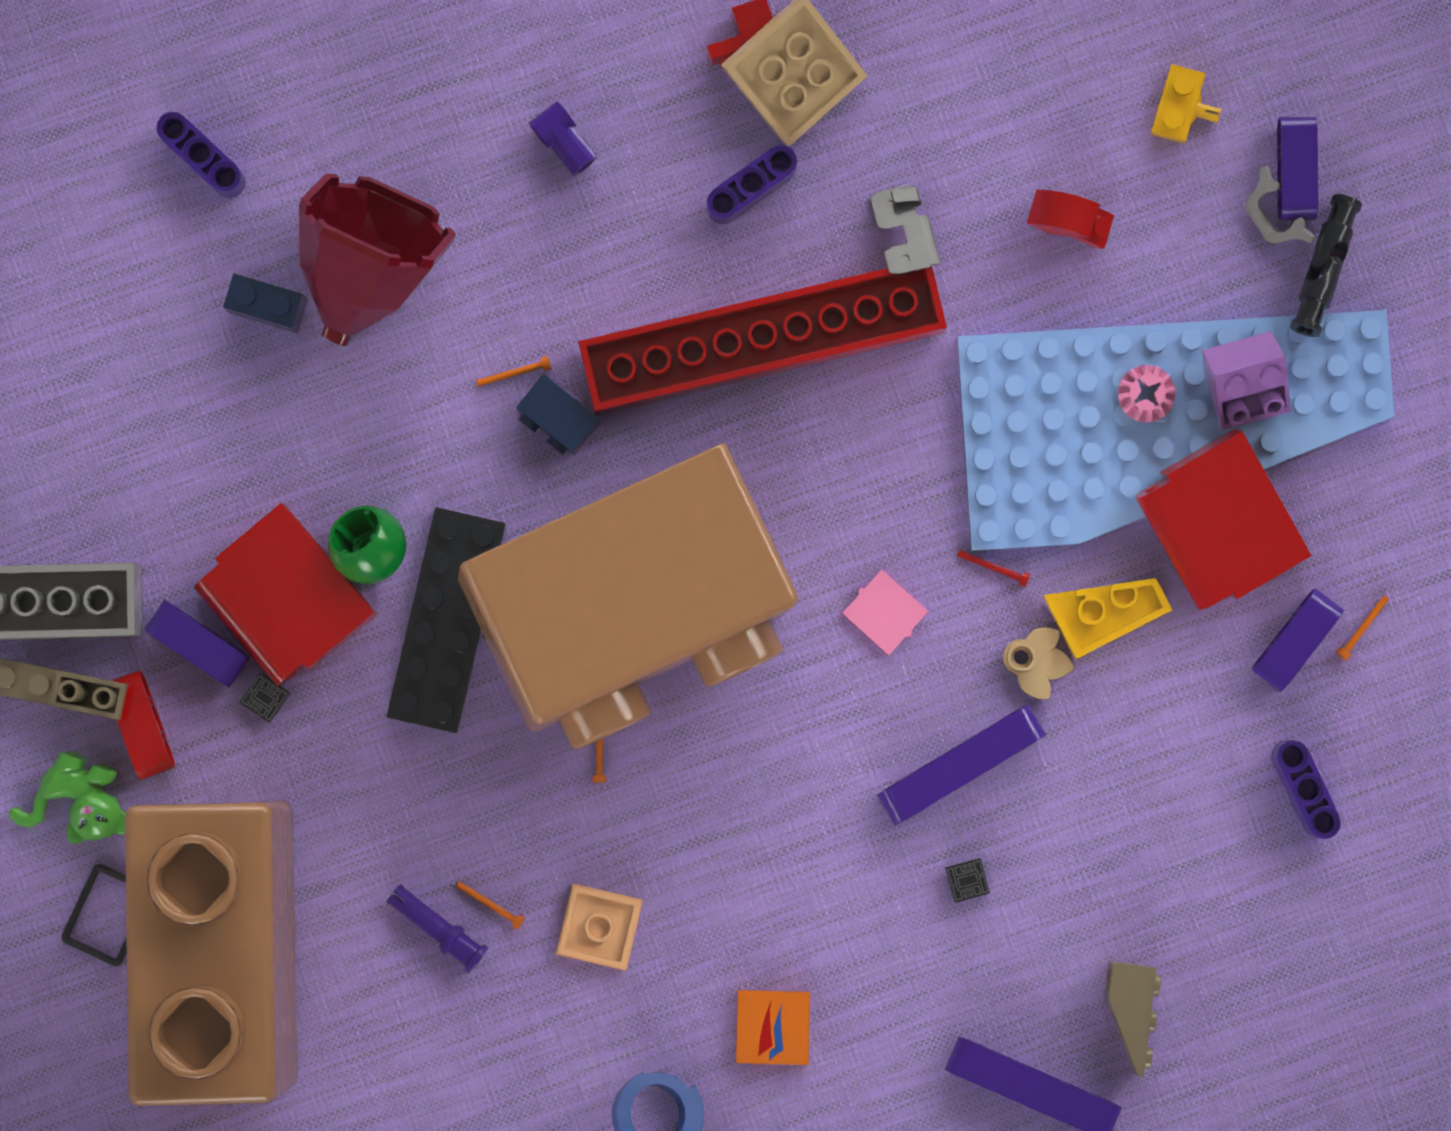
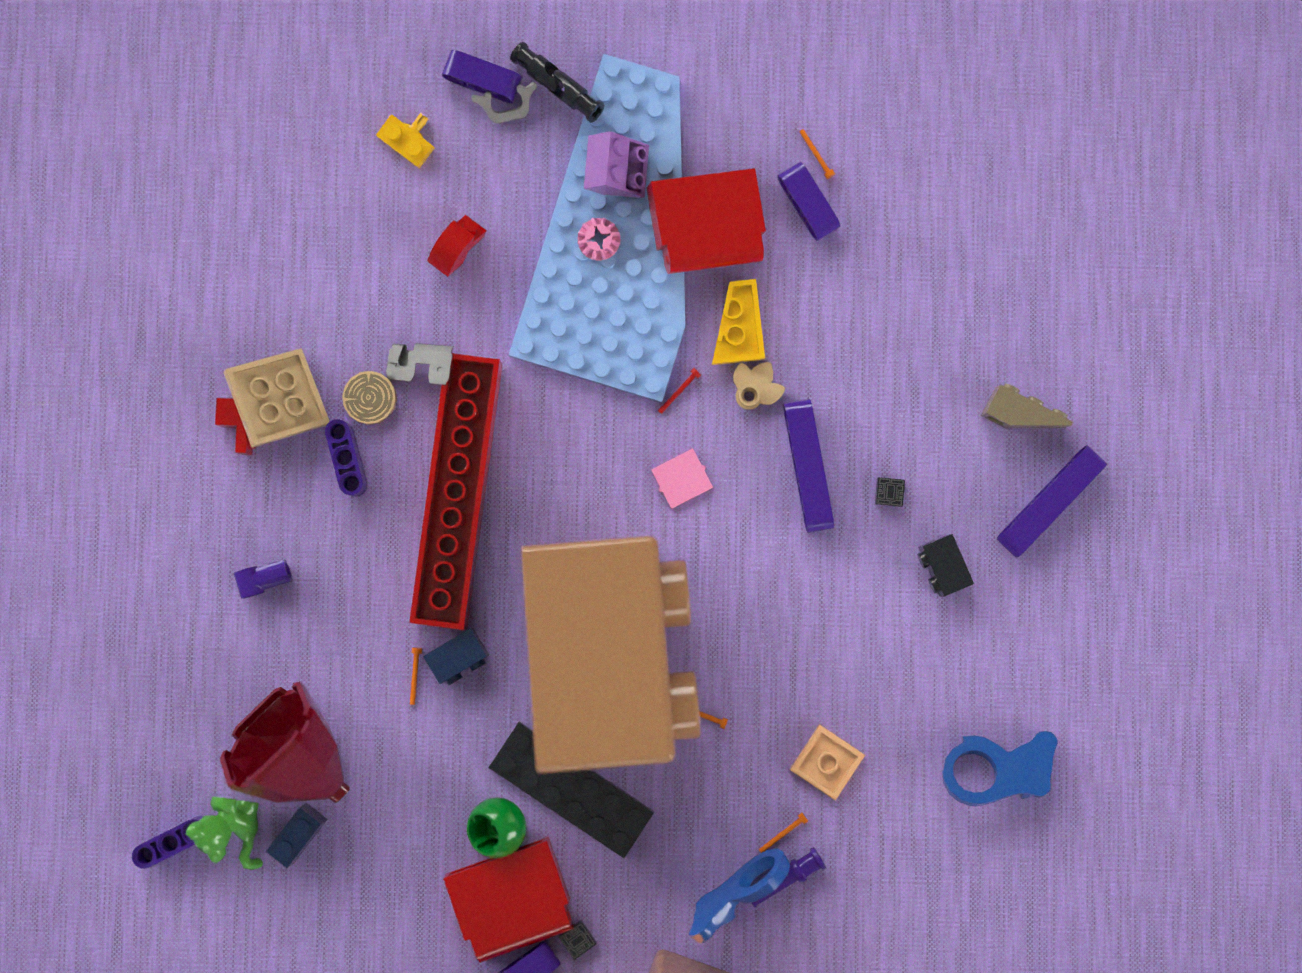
camera: 65 degrees left, 0 degrees up
(234, 202) = (213, 832): none -> bright green animal
(407, 877) = (720, 904): none -> blue animal
(773, 1027) = (942, 666): orange tile -> none
(838, 184) = (369, 397): none -> dark tan tile
(900, 983) = (945, 565): none -> black brick
(1320, 800) = (925, 228): dark purple beam -> none

